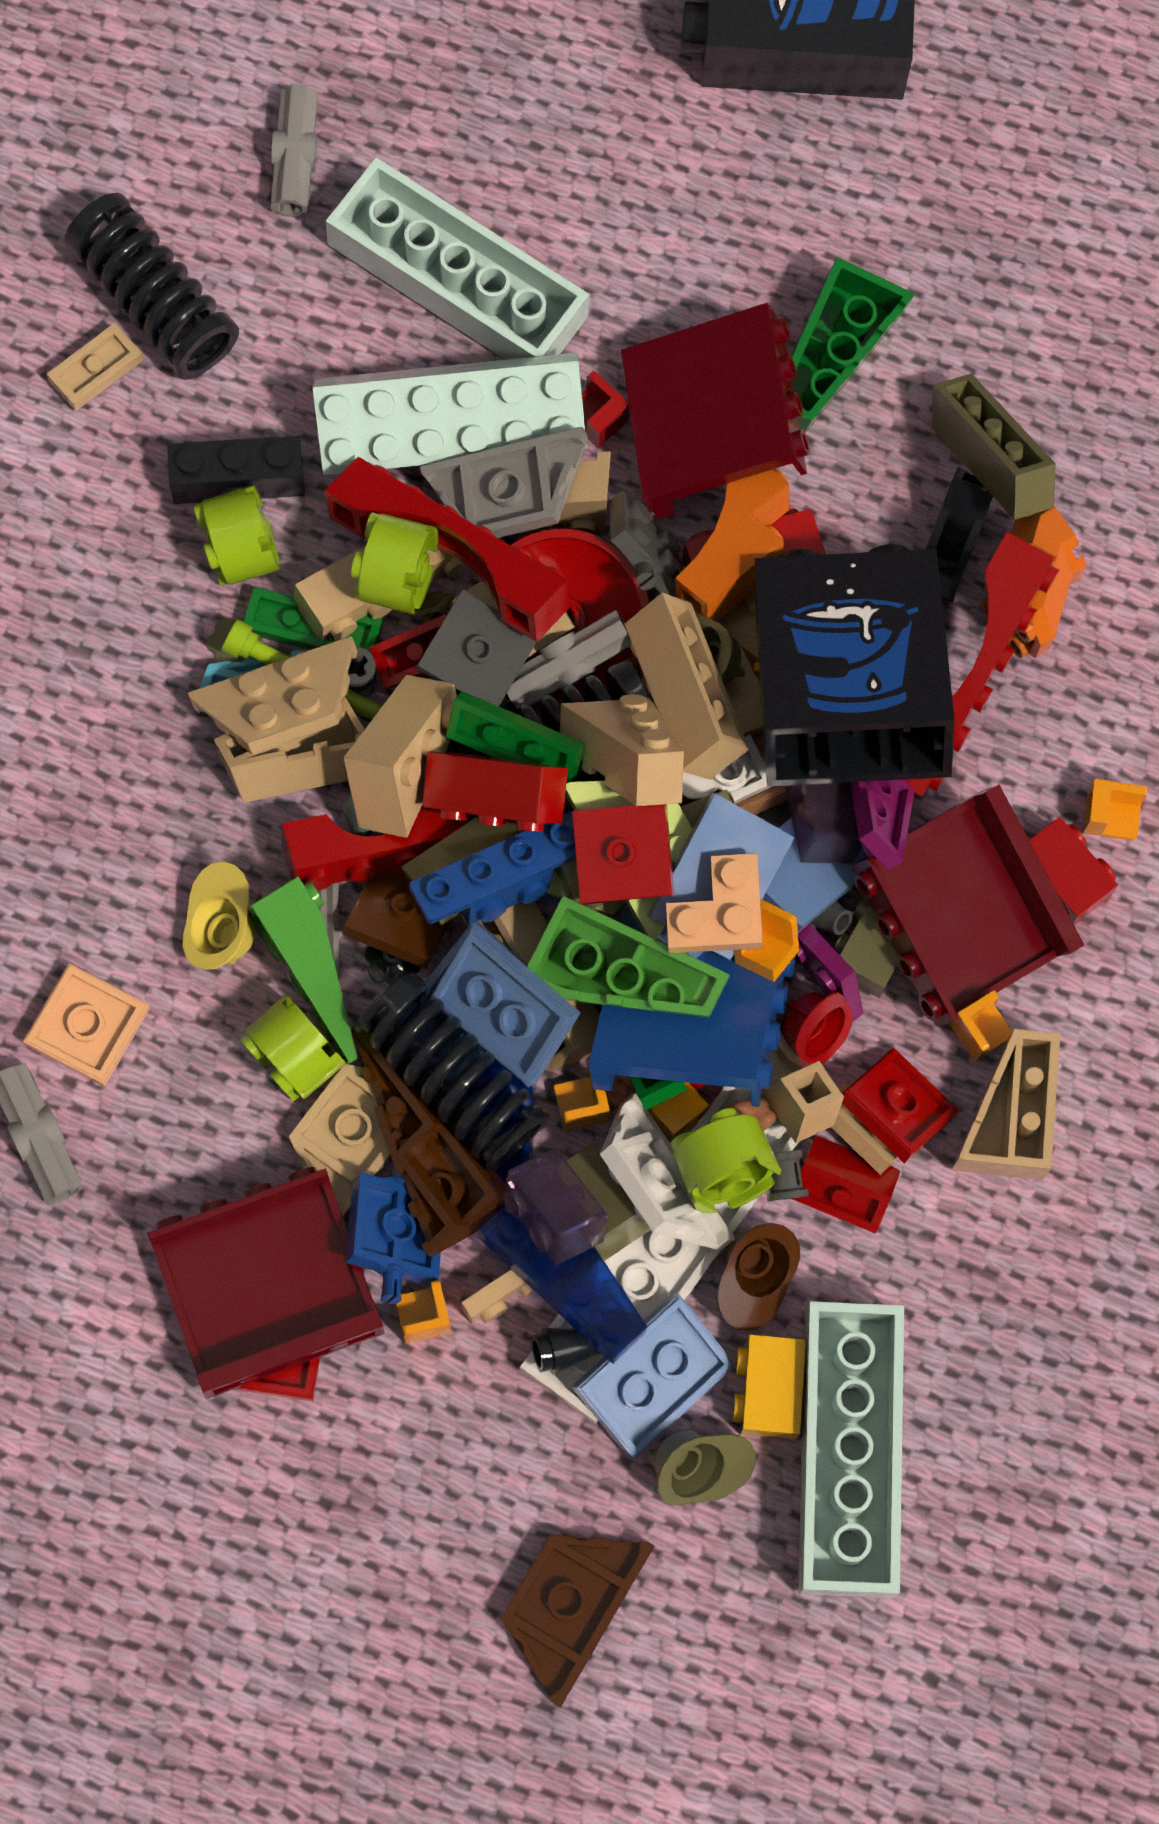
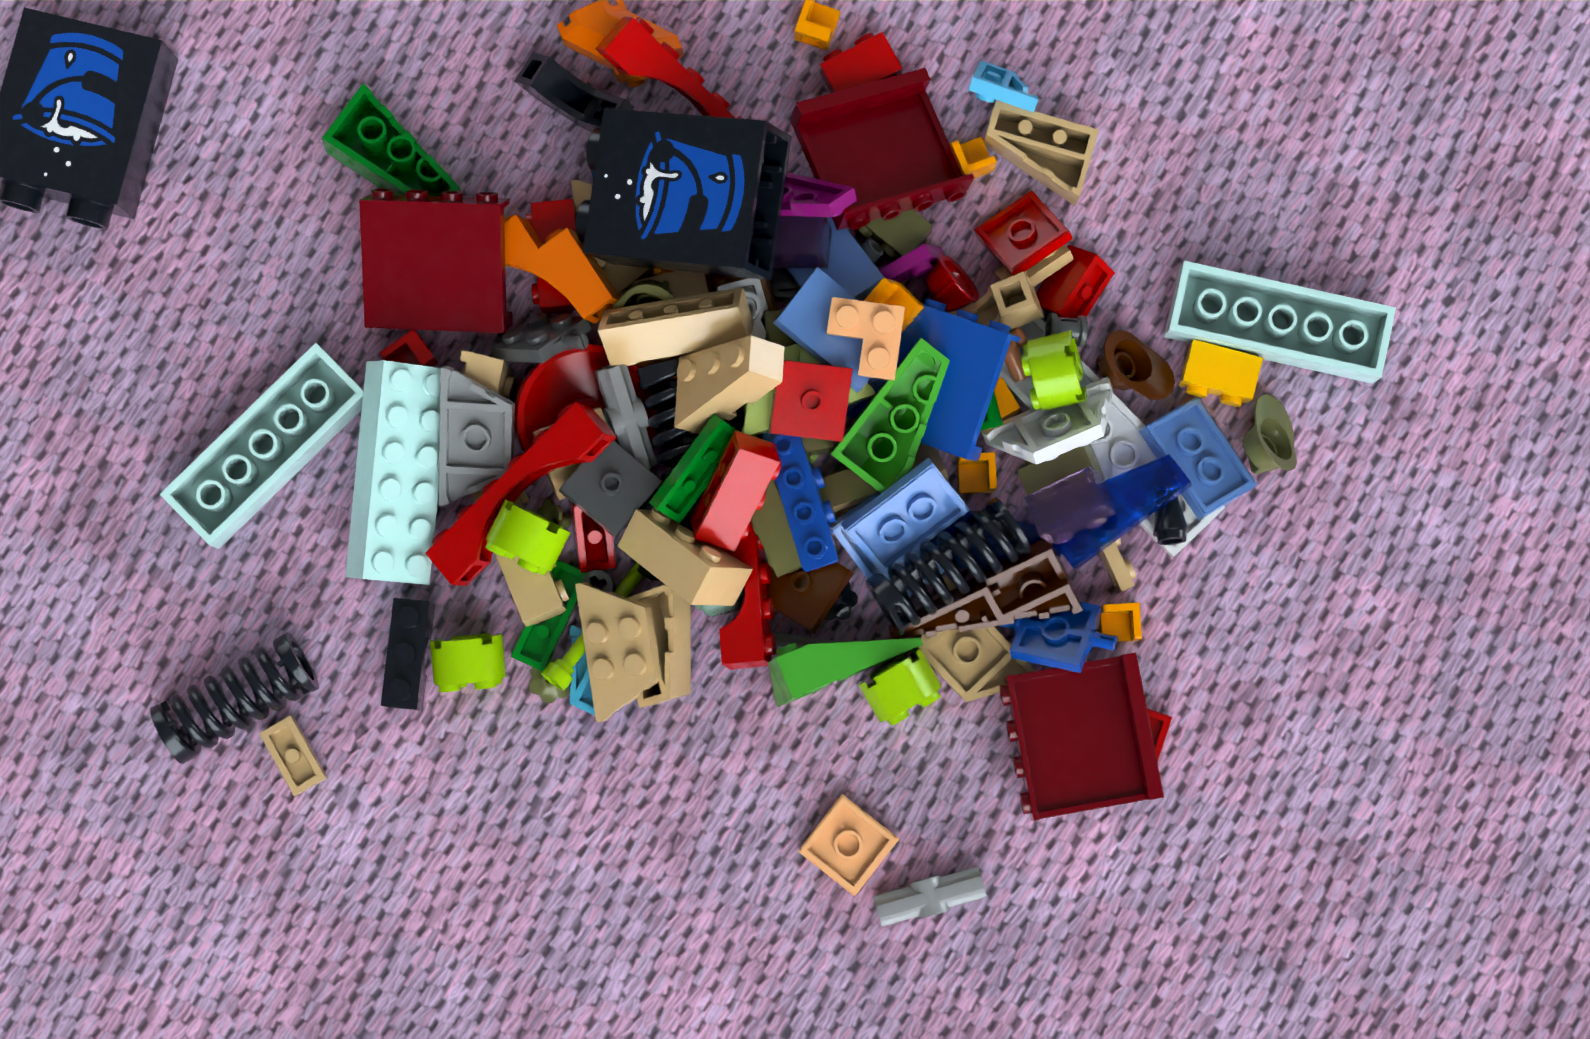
camera: 70 degrees left, 10 degrees up
(218, 917) = (784, 728): light yellow piece -> none
(294, 151) = (131, 562): light grey piece -> none
(569, 1605) = (1354, 551): reddish brown wing -> none
(993, 446) = (510, 48): olive brick -> none
(1082, 1038) = (1000, 84): none -> medium azure wing

